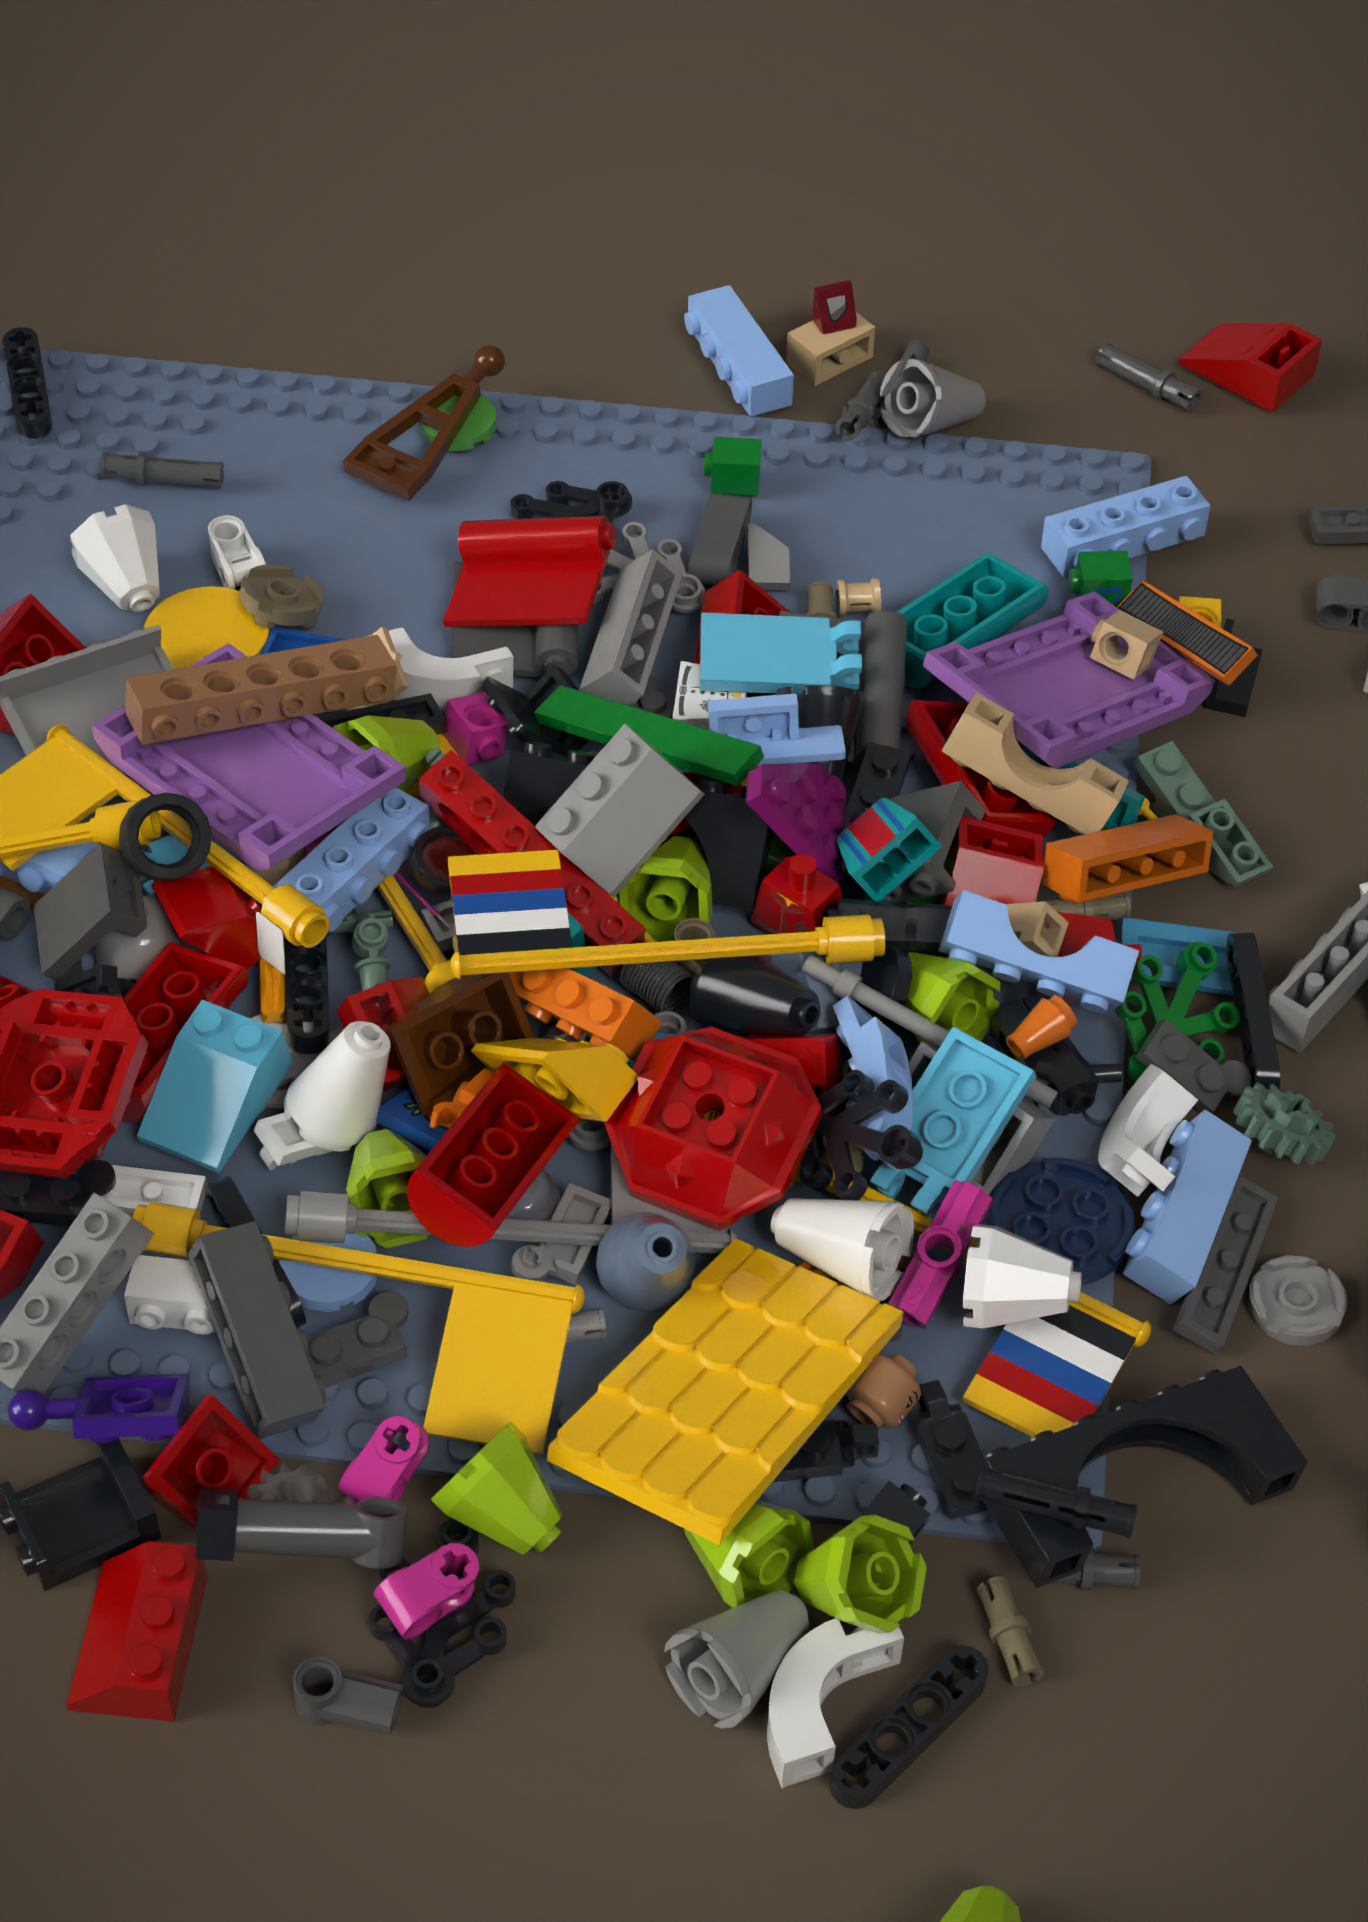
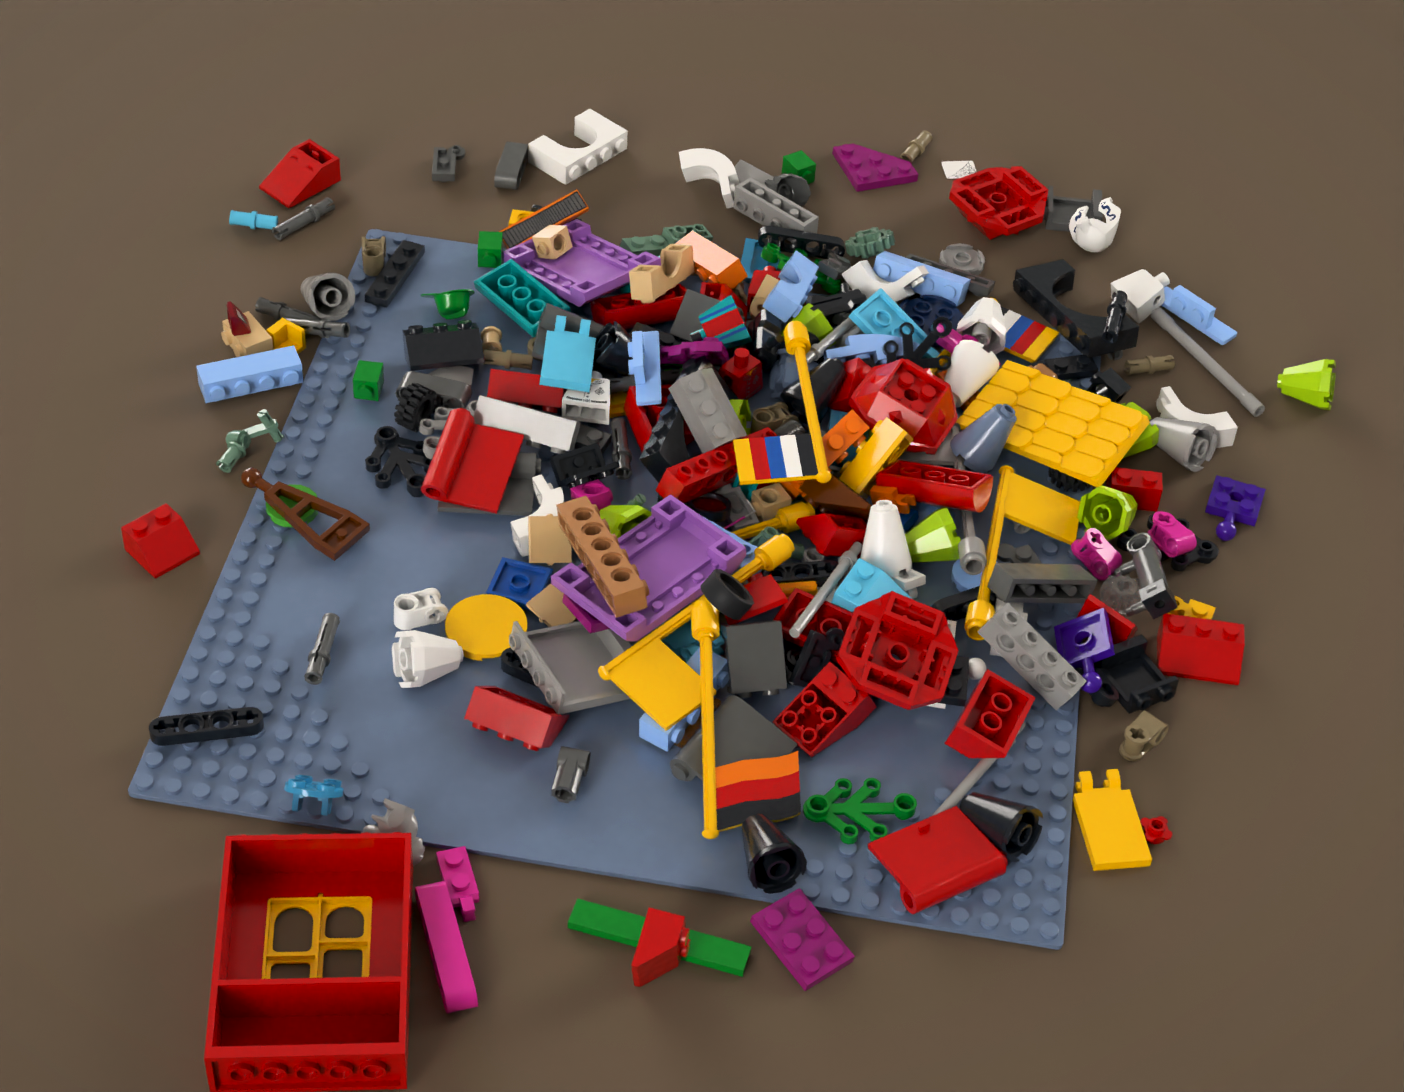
camera: 90 degrees left, 5 degrees down
(37, 1454) = (1107, 694): none -> black plate
(254, 1644) = (1193, 609): none -> yellow plate
(270, 942) = (781, 571): white sticker -> none
(281, 598) = (465, 584): dark tan plate -> none
(311, 1039) = (846, 563): none -> light grey bar
(351, 1697) = (1222, 576): dark grey piece -> none
(382, 307) = (159, 541): none -> red slope
(550, 1773) = (1222, 505): none -> dark purple plate
(600, 361) = (239, 440): none -> sand green pin
(610, 1557) = (1143, 485): none -> red slope
(673, 499) = (414, 406): none -> black tyre
(681, 743) = (633, 408): green tile -> none
(814, 530) = (443, 345): none -> black slope
(842, 382) = (287, 334): none -> yellow panel
(864, 1575) = (1147, 390): lime cone -> none
(903, 1720) = (1181, 385): black beam -> none
(929, 1824) = (1247, 399): none -> light grey piece
(947, 536) = (452, 303): none -> green piece
(1020, 481) = (394, 273): none -> black plate
(1043, 1026) = (834, 293): orange cone -> none
(1052, 445) = (373, 255): none -> dark tan piece
(1127, 323) = (253, 220): none -> medium azure pin
(1128, 522) = (447, 236): light blue brick -> none
(1205, 1741) = (1197, 313): none -> light blue bracket
(1235, 1620) = (1143, 292): none -> white torso

